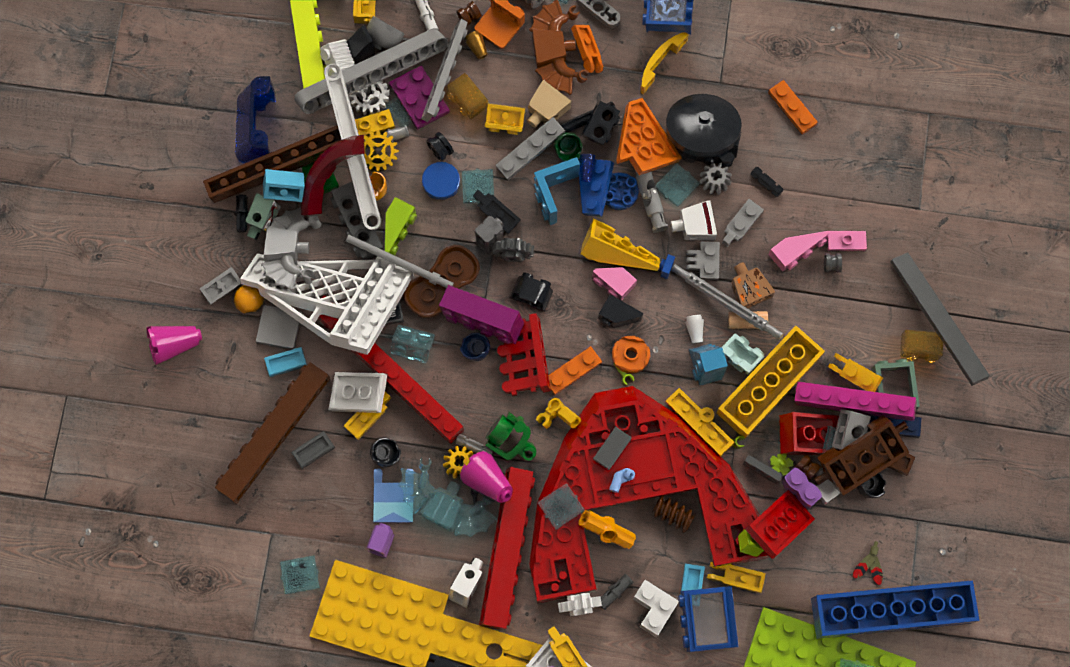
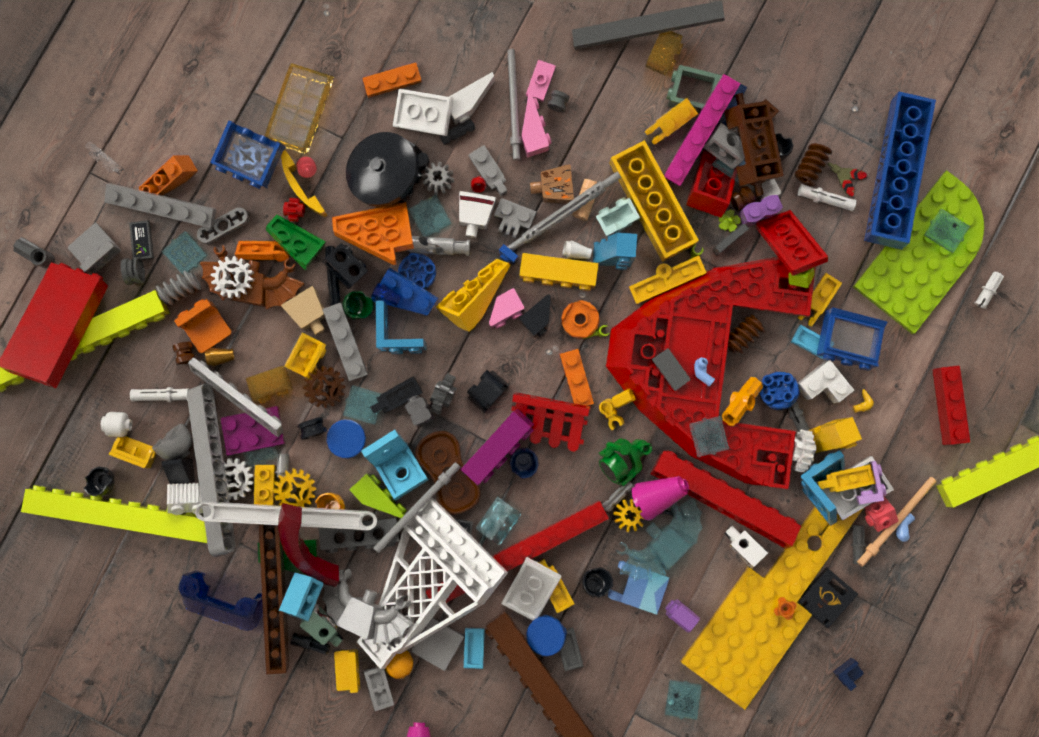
camera: 70 degrees left, 10 degrees up
(227, 255) = (347, 670): none -> yellow panel
(319, 422) = (546, 635): none -> blue tile
(415, 639) = (791, 606): none -> orange plate
(438, 224) = (391, 455): none -> medium azure bracket
(474, 136) = (331, 384): none -> reddish brown gear
(554, 36) = (239, 273): none -> white gear
(563, 624) = (817, 472): none -> dark azure bracket
(605, 627) = (836, 434): none -> yellow wedge
(607, 73) = (295, 241): none -> green wing
(631, 565) = (779, 390): none -> blue tile
(636, 62) = (294, 209): none -> red gear
(648, 659) = (866, 405): none -> yellow animal
(669, 318) = (558, 271): none -> yellow brick
(679, 59) = (306, 167): none -> coral wheel
(720, 215) = (478, 188): none -> red hinge
(732, 35) = (299, 108): none -> clear piece
(771, 143) = (423, 112): none -> white tile
(779, 236) = (515, 140): none -> light grey bar
(799, 179) = (469, 98): none -> white slope
(841, 550) = (819, 195): none -> white pin
(868, 523) = (811, 162): none -> reddish brown piece

